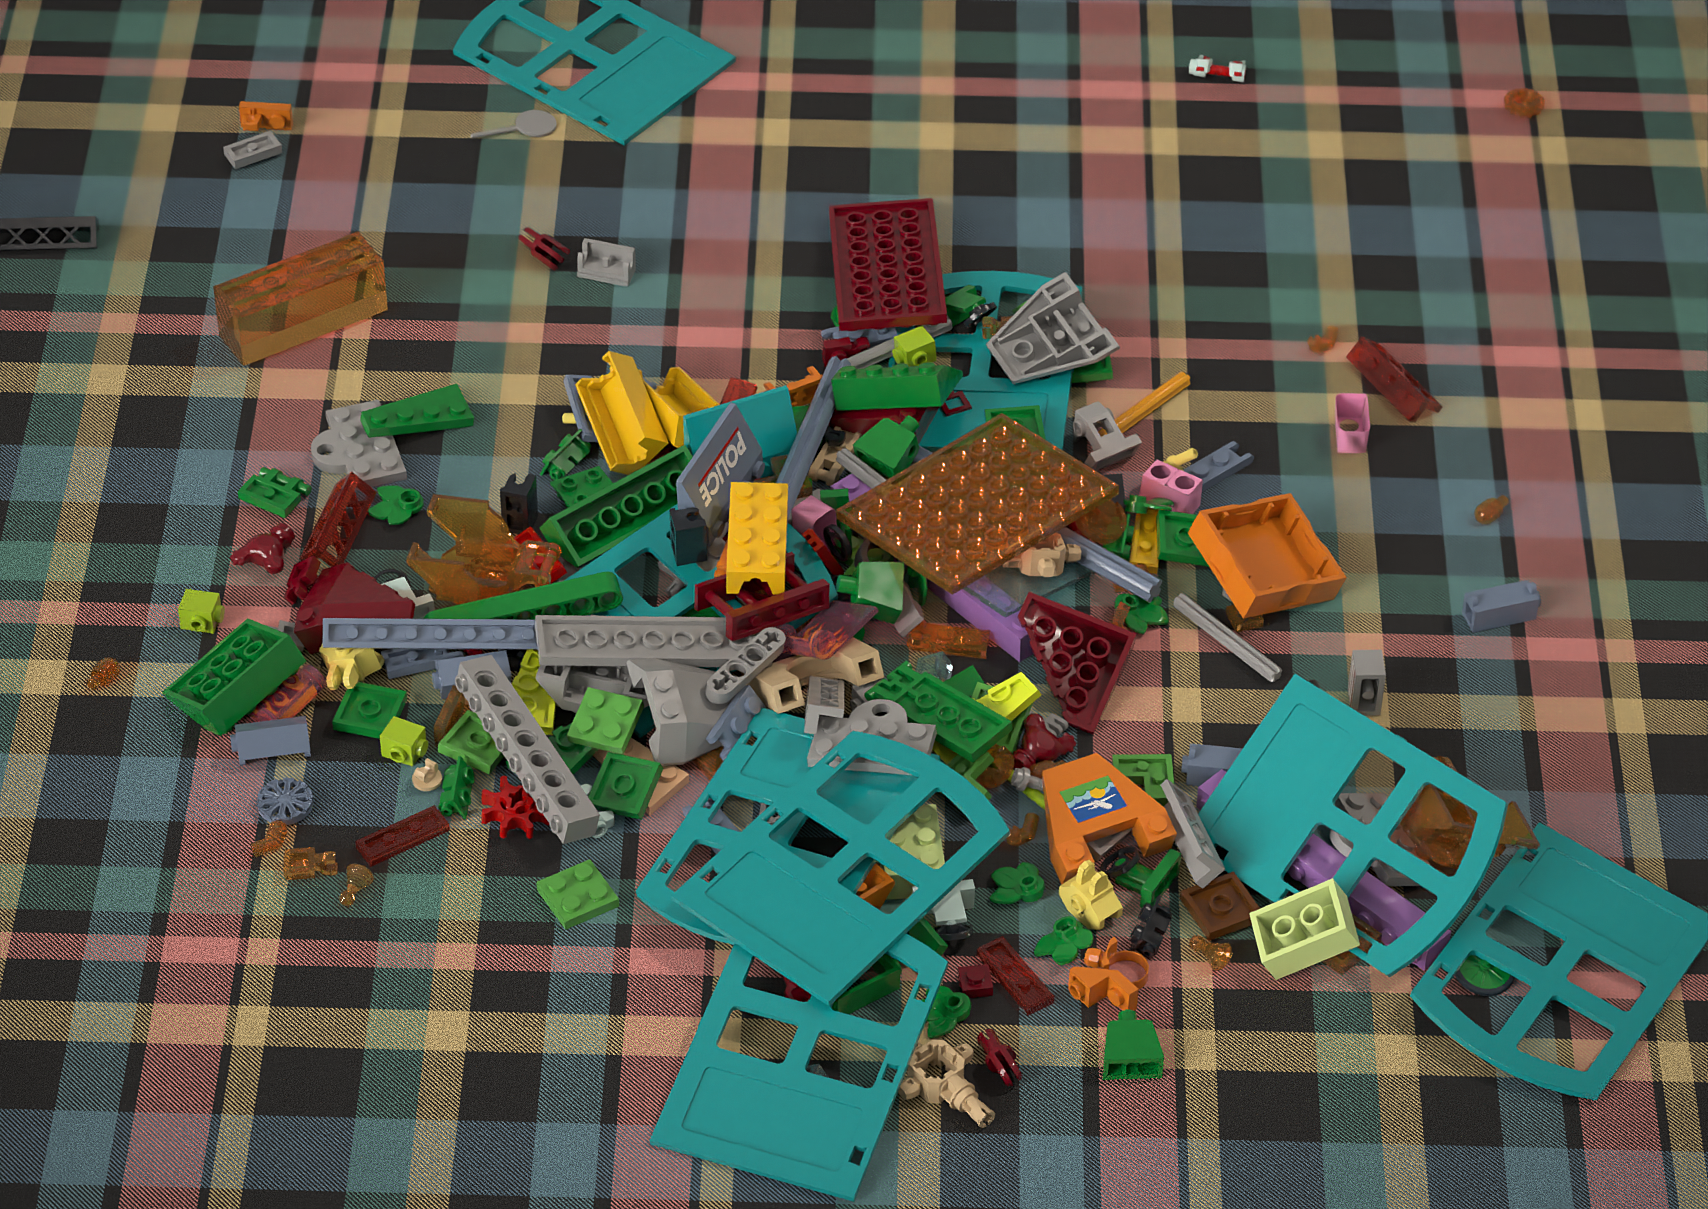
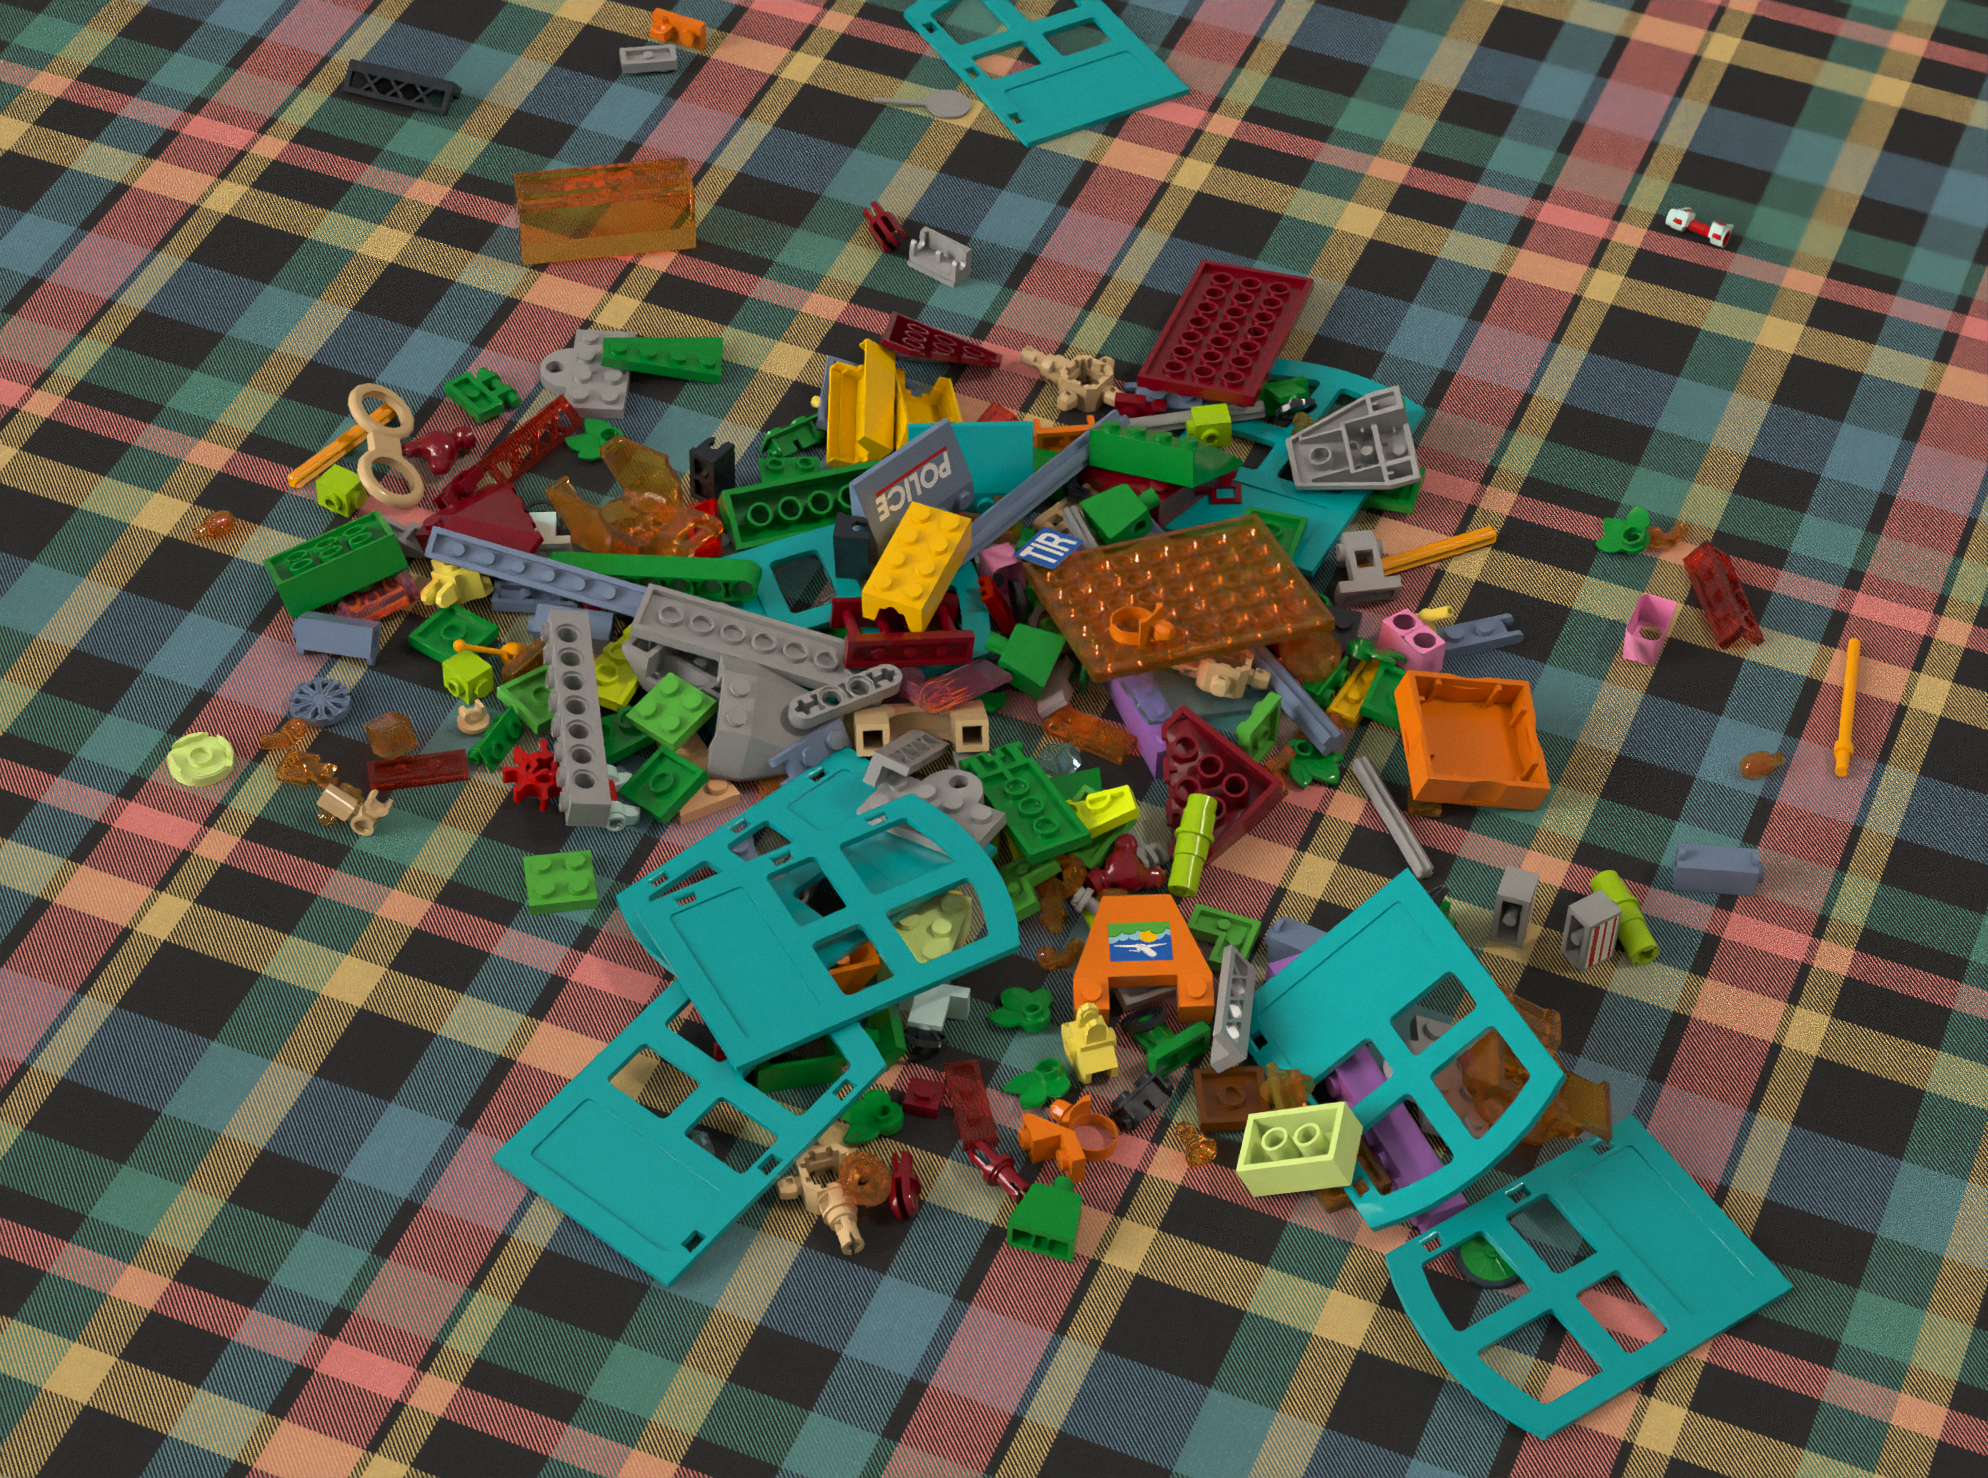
camera: 20 degrees right, 0 degrees up
(176, 569) = (337, 449): none -> light orange axle
(207, 881) = (200, 759): none -> yellowish green tile
(219, 560) = (385, 446): none -> tan bar
(368, 811) = (391, 735): none -> clear orange brick
(381, 889) = (363, 817): none -> tan bar
(425, 712) = (506, 654): none -> light orange hinge
(643, 341) = (922, 343): none -> dark red slope
(768, 335) = (1070, 373): none -> tan piece
(849, 490) = (1048, 548): none -> blue sticker
(980, 533) = (1149, 626): none -> orange piece
(984, 1063) = (856, 1166): none -> clear orange gear
(1001, 799) = (1053, 914): none -> clear orange plant
(1072, 1022) = (999, 1171): none -> dark red arm
(1087, 707) = (1192, 845): none -> lime piece
(1092, 582) = (1260, 730): none -> bright green plate
(1268, 882) = (1286, 1087): none -> clear orange hips
(1287, 348) = (1626, 535): none -> green plate
(1435, 684) = (1591, 931): none -> light grey brick
(1450, 665) = (1632, 929): none -> lime piece
(1547, 477) = (1844, 746): none -> light orange bar

